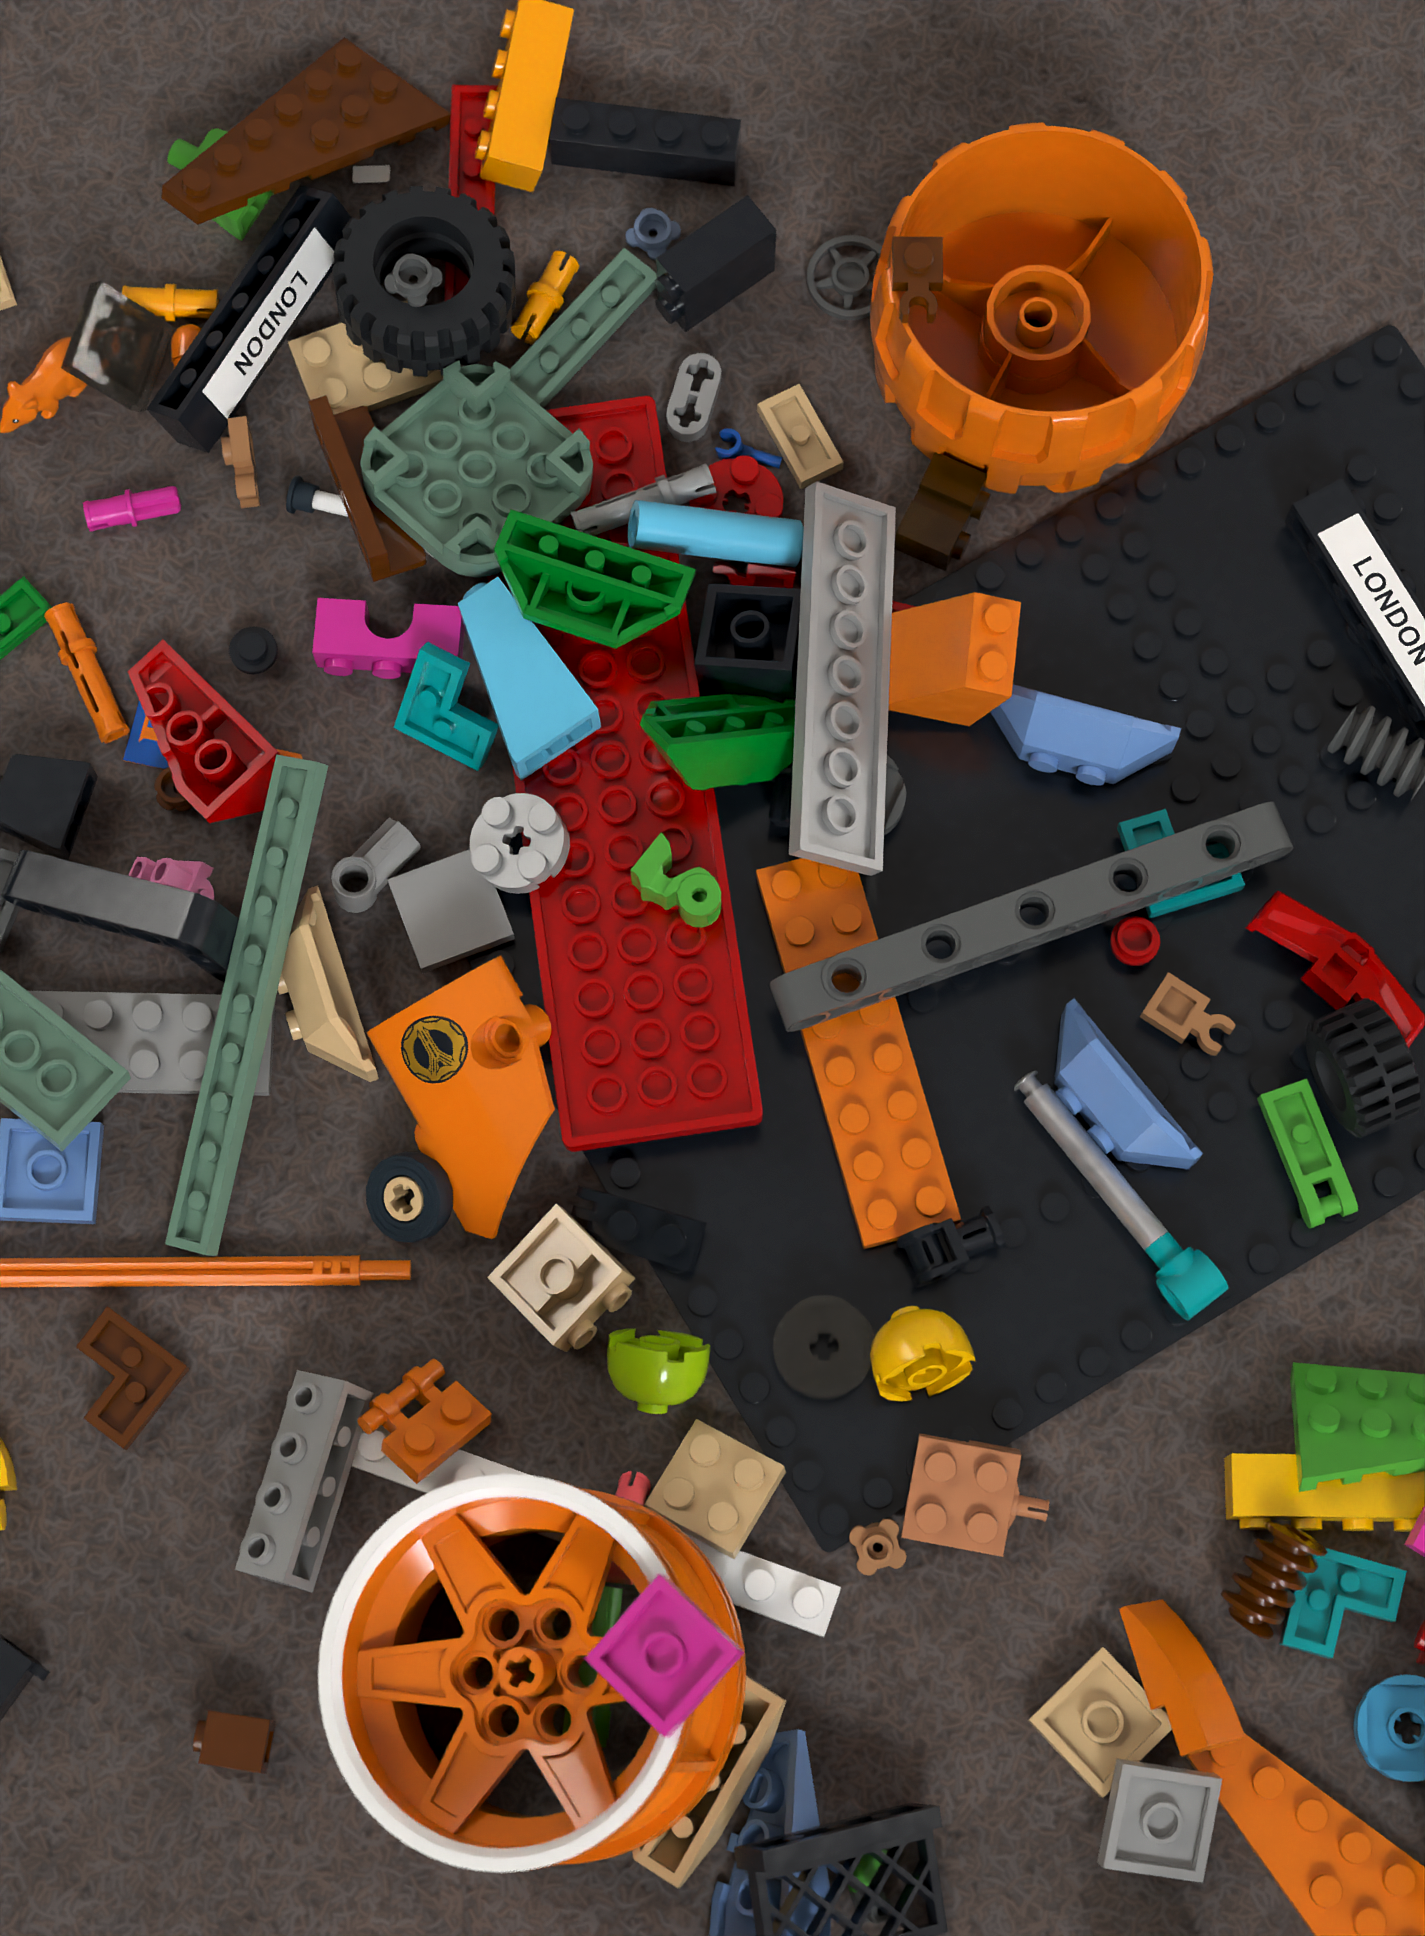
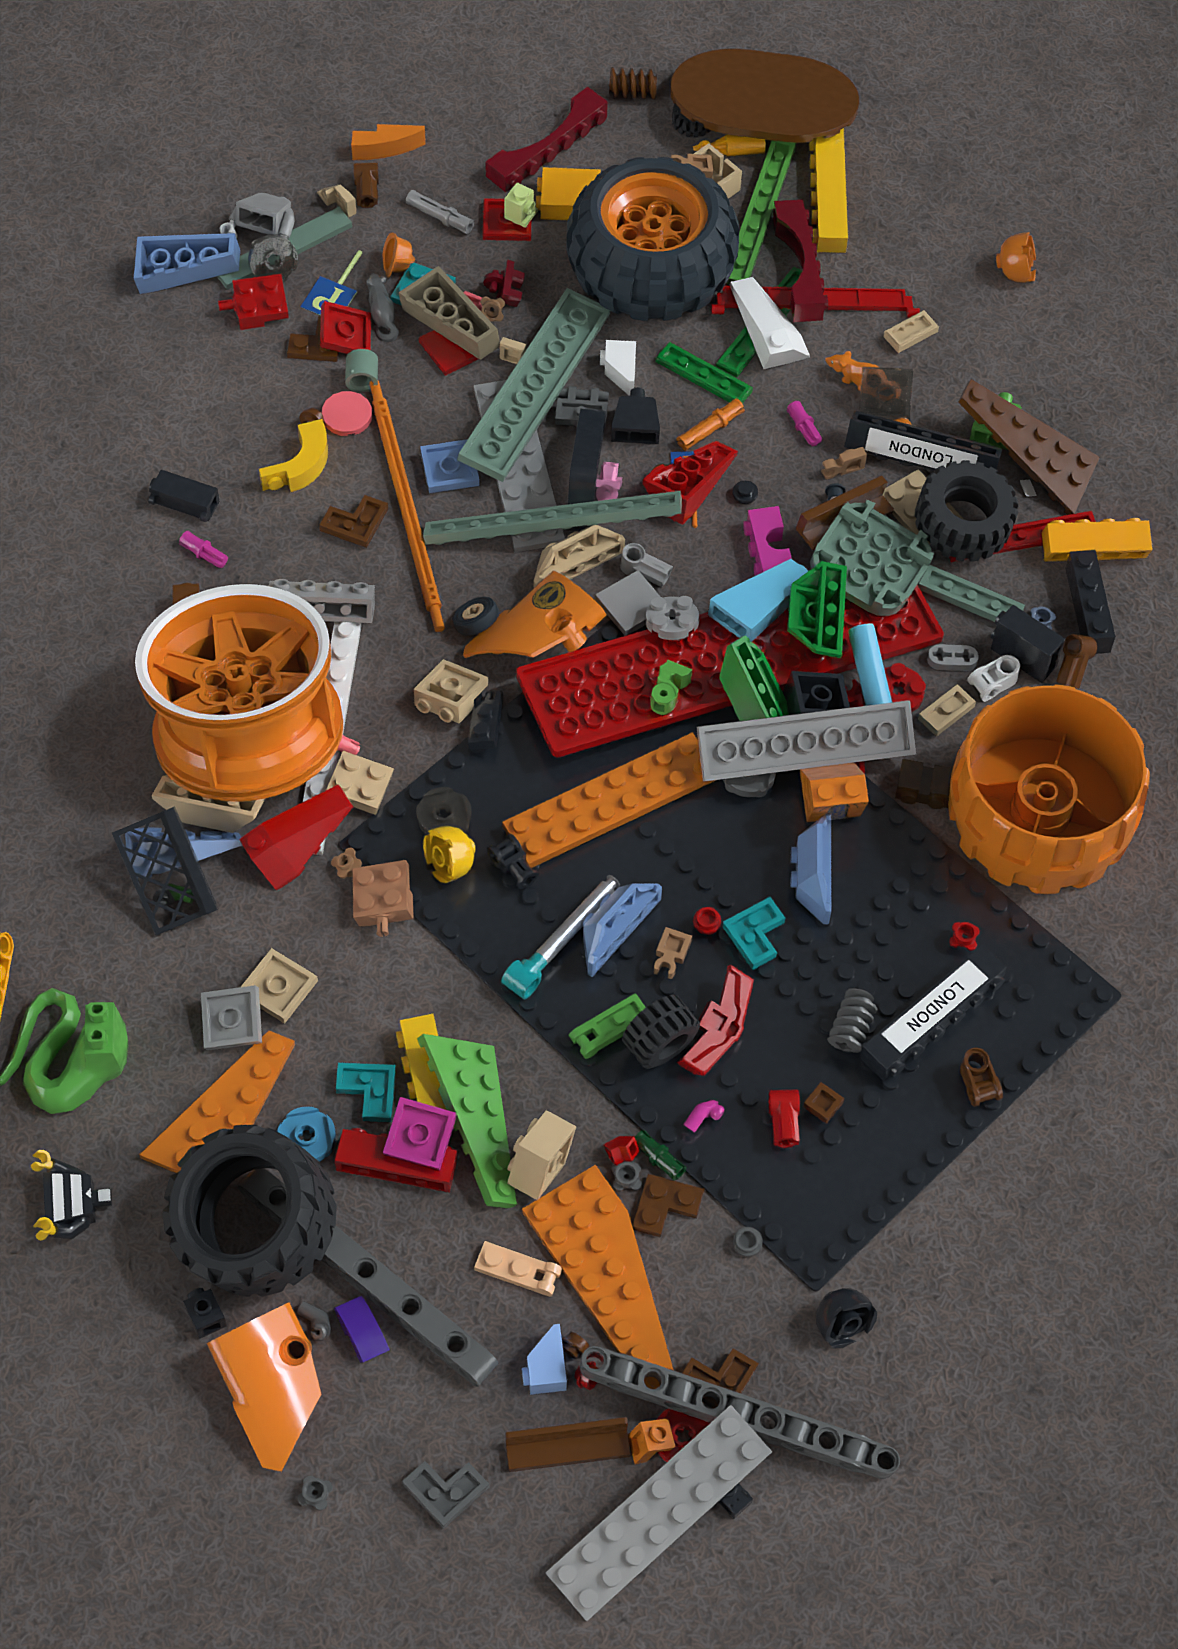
camera: 75 degrees right, 15 degrees down
(113, 1686) = (203, 549): none -> dark pink axle
(174, 302) = (921, 413): light orange pin -> none
(410, 267) = (956, 486): dark grey plate -> none
(432, 711) = (740, 569): teal plate -> none
(434, 1431) = (359, 652): orange plate -> none
(545, 297) = (985, 577): light orange pin -> none
(657, 1368) = (413, 739): lime cylinder -> none
(664, 1655) = (251, 703): dark pink tile -> none
(670, 490) = (886, 644): light grey pin -> none
(739, 449) = (931, 684): blue hand -> none
(757, 345) = (992, 680): none -> white piece
(769, 196) = (1076, 660): none -> reddish brown piece
(821, 1638) = (289, 839): none -> red wedge
(918, 271) = (1031, 696): reddish brown plate -> none
(997, 930) = (713, 872): dark grey beam -> none
(1180, 1678) = (308, 1011): orange slope -> none
(1259, 522) = (967, 929): none -> red plate
(1273, 1578) = (370, 1046): reddish brown piece -> none

